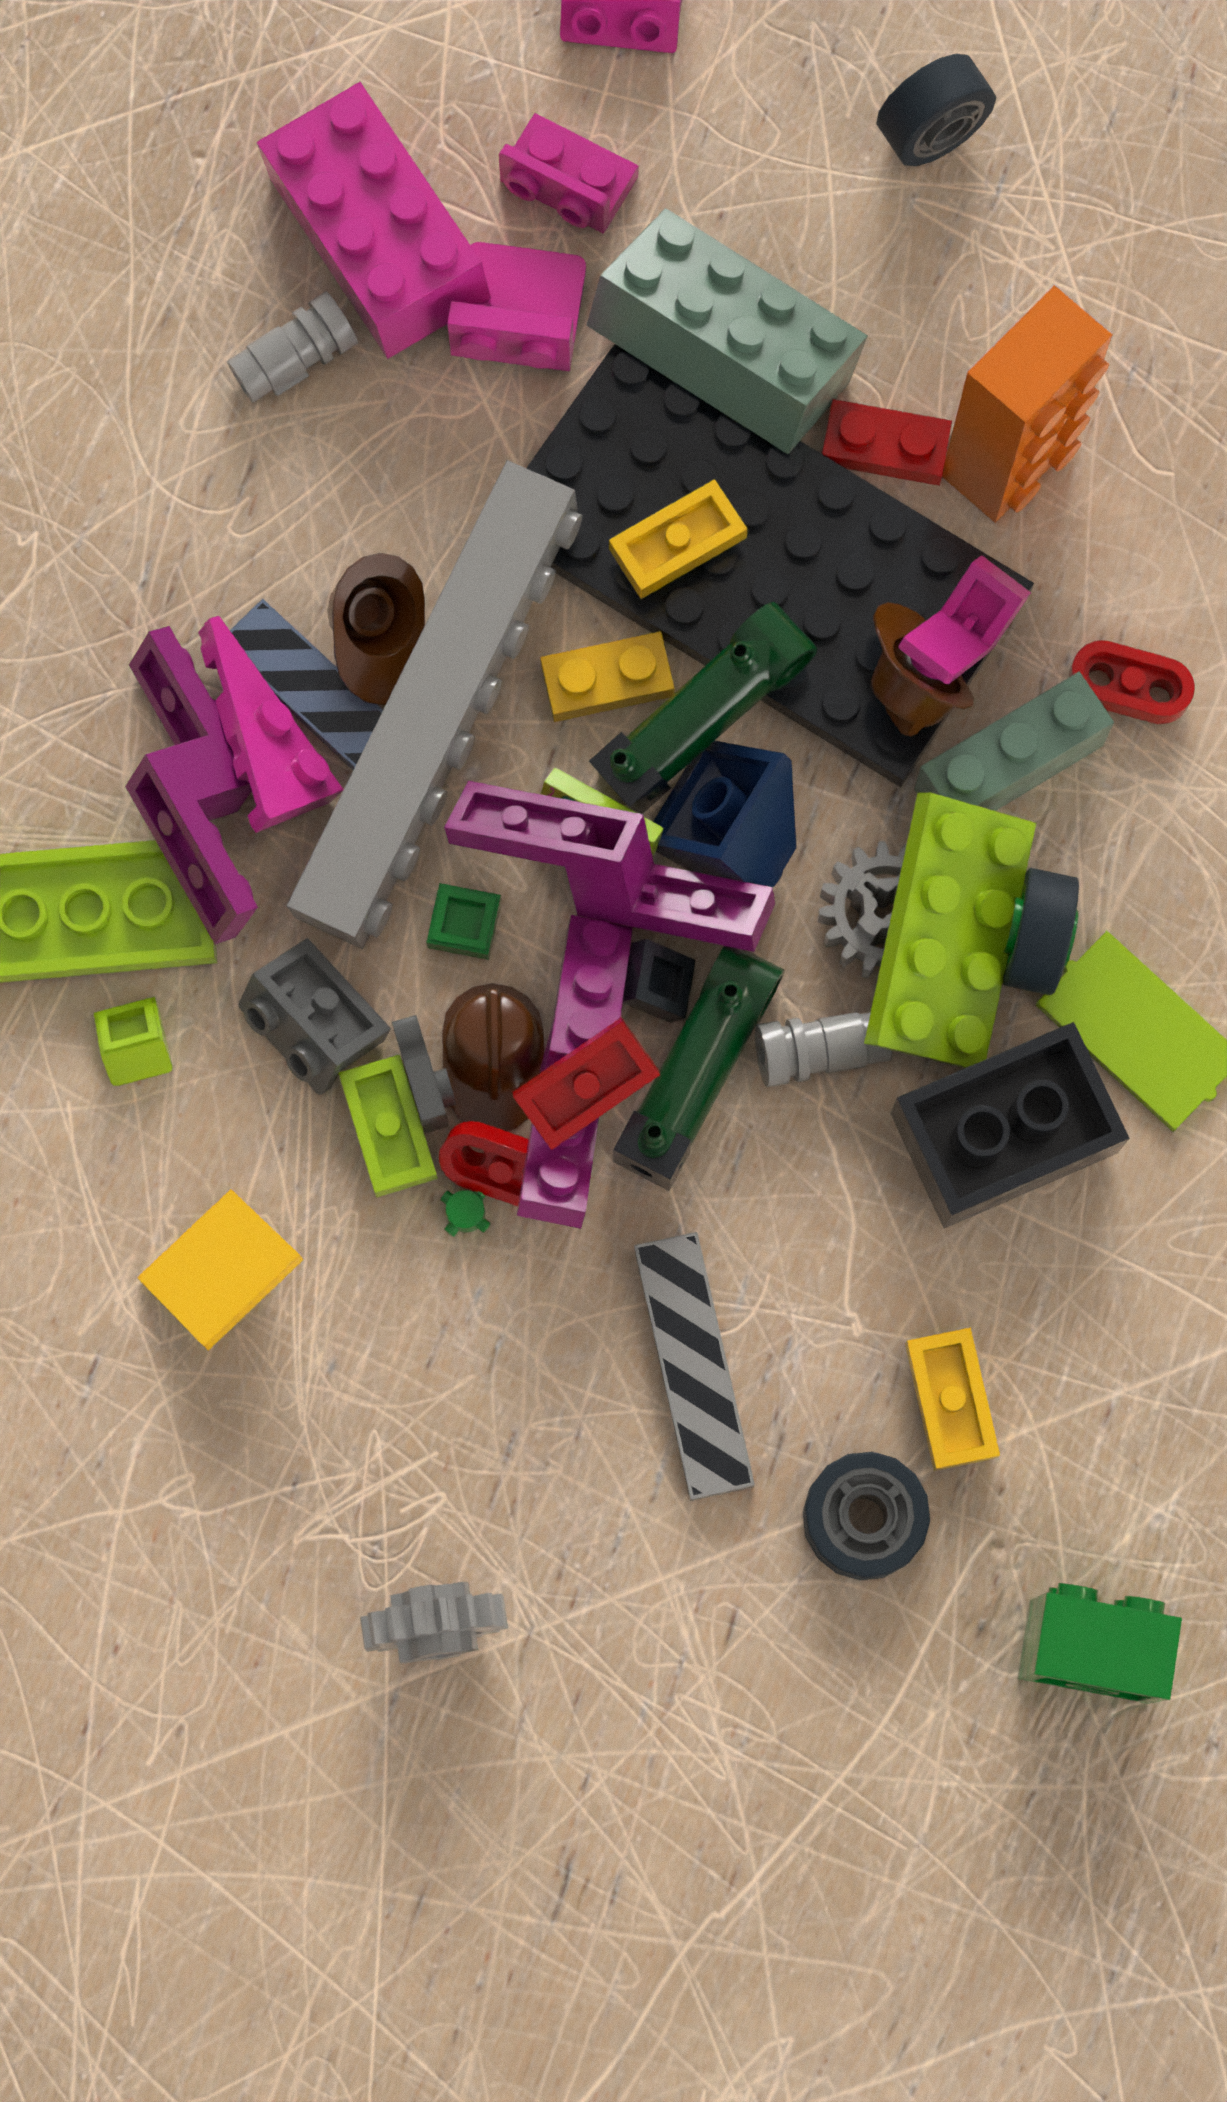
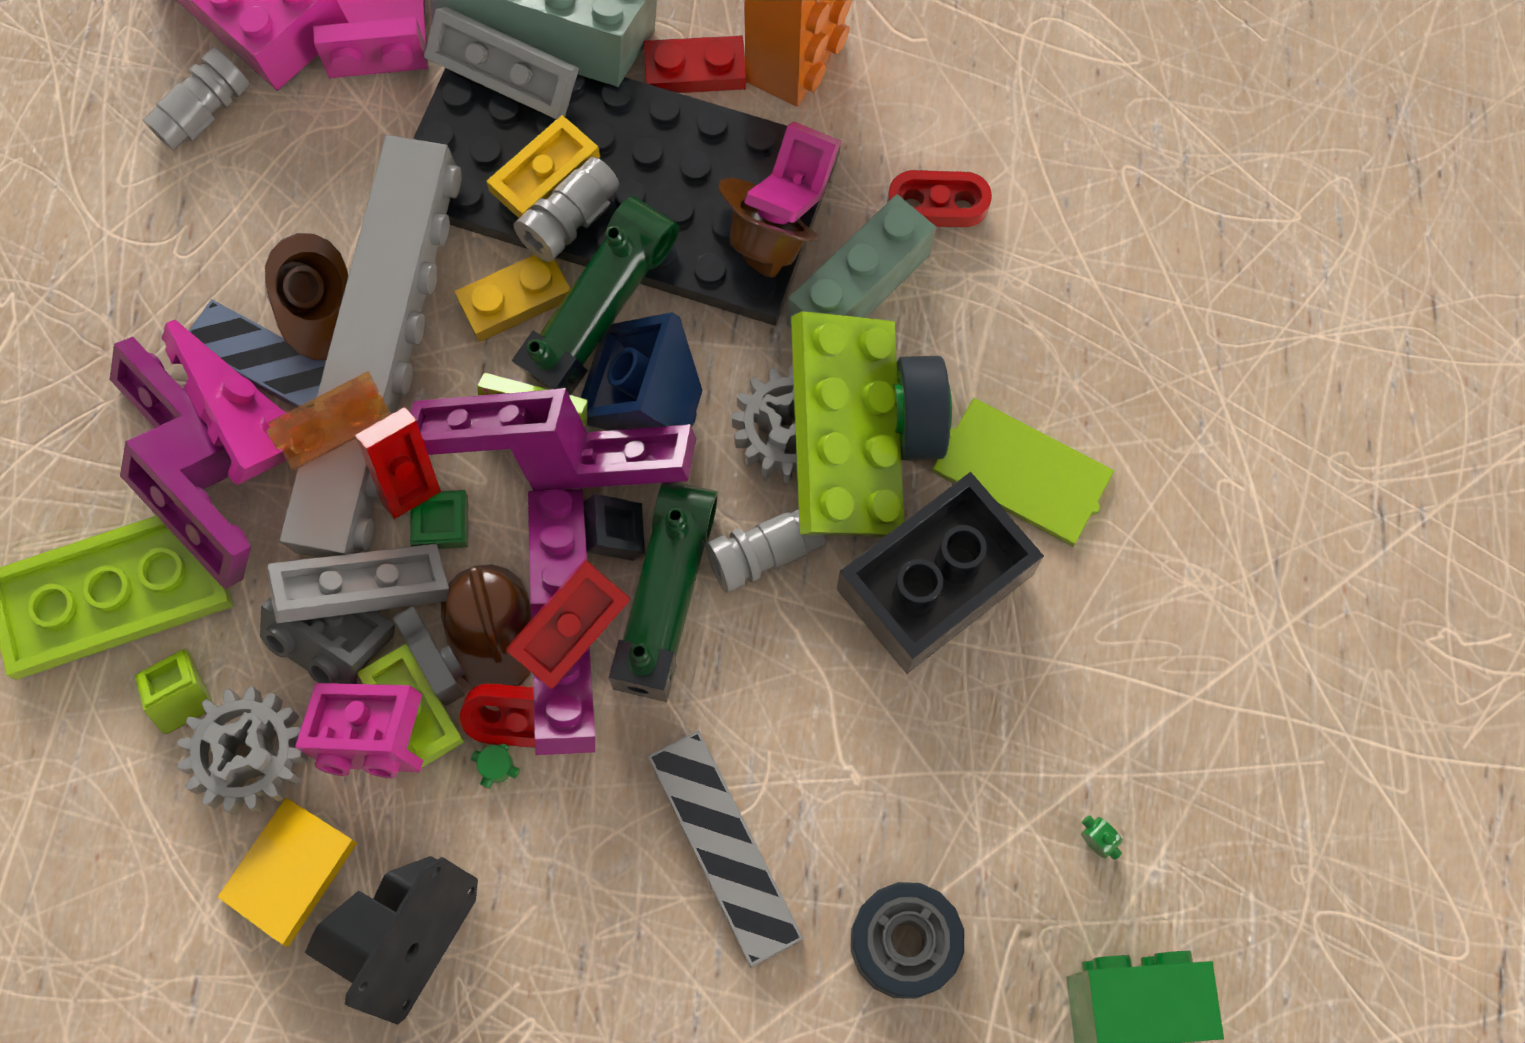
camera: 15 degrees left, 5 degrees down
(215, 1108) = (229, 771): none -> light grey gear
(323, 1367) = (397, 937): none -> black piece
(332, 1137) = (361, 728): none -> dark pink bracket
(361, 973) = (356, 583): none -> light grey plate
(373, 784) = (328, 421): none -> clear orange hinge
(438, 852) = (398, 462): none -> red plate
(658, 395) = (501, 62): none -> light grey plate
(698, 593) = (572, 204): none -> light grey axle
(952, 1399) = (953, 818): yellow plate -> none
(1110, 1462) = (1101, 837): none -> green piece

